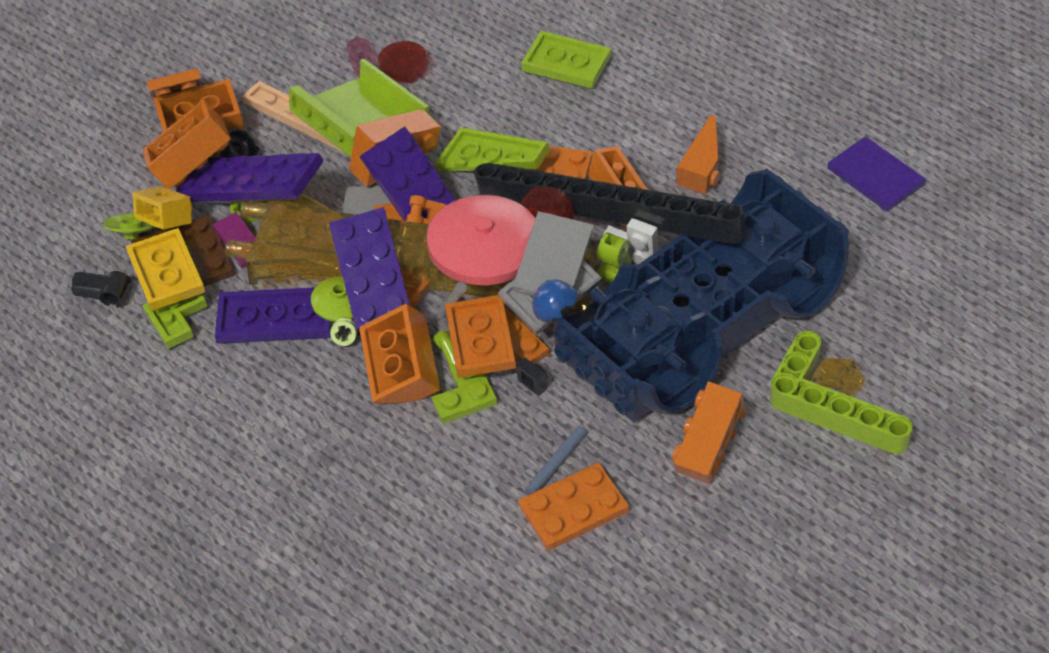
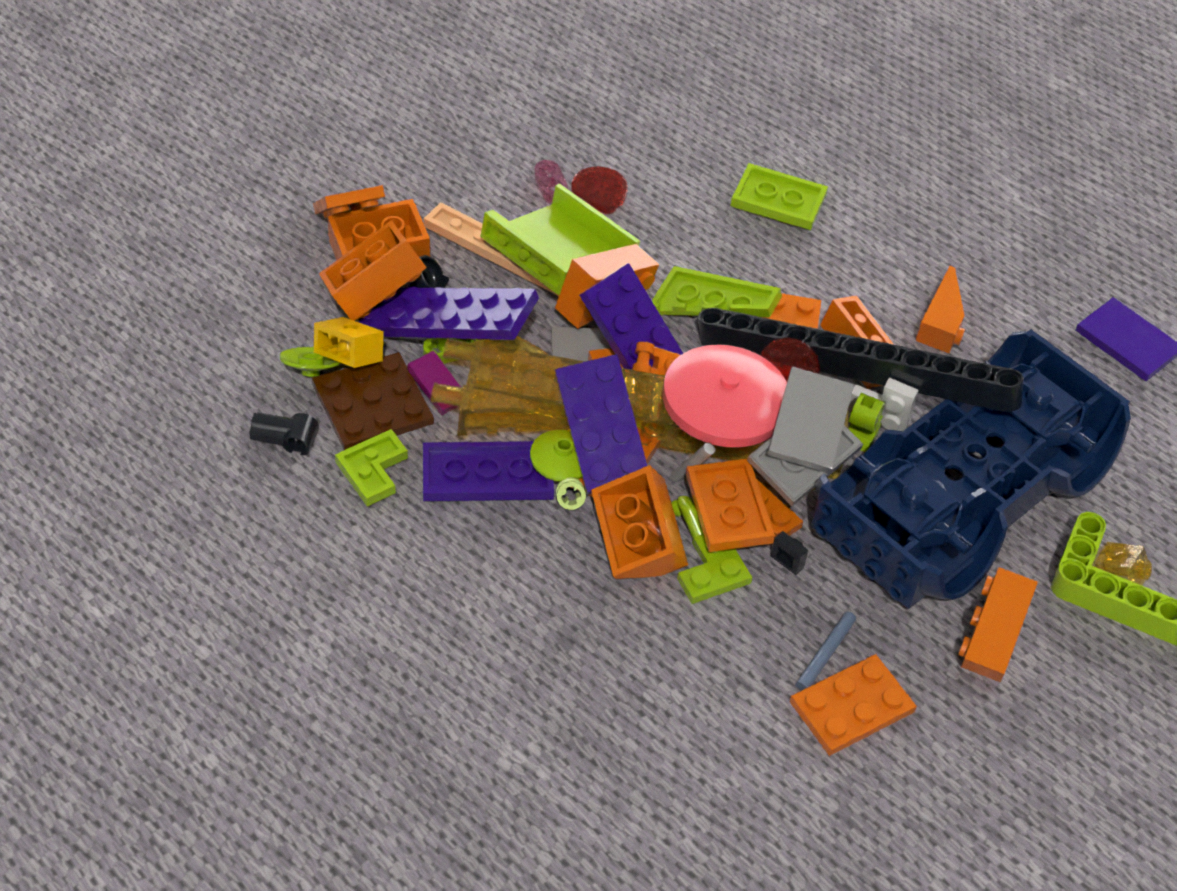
camera: 10 degrees left, 0 degrees up
(165, 269) = (359, 414): yellow plate -> none
(551, 298) = (819, 467): blue hair -> none

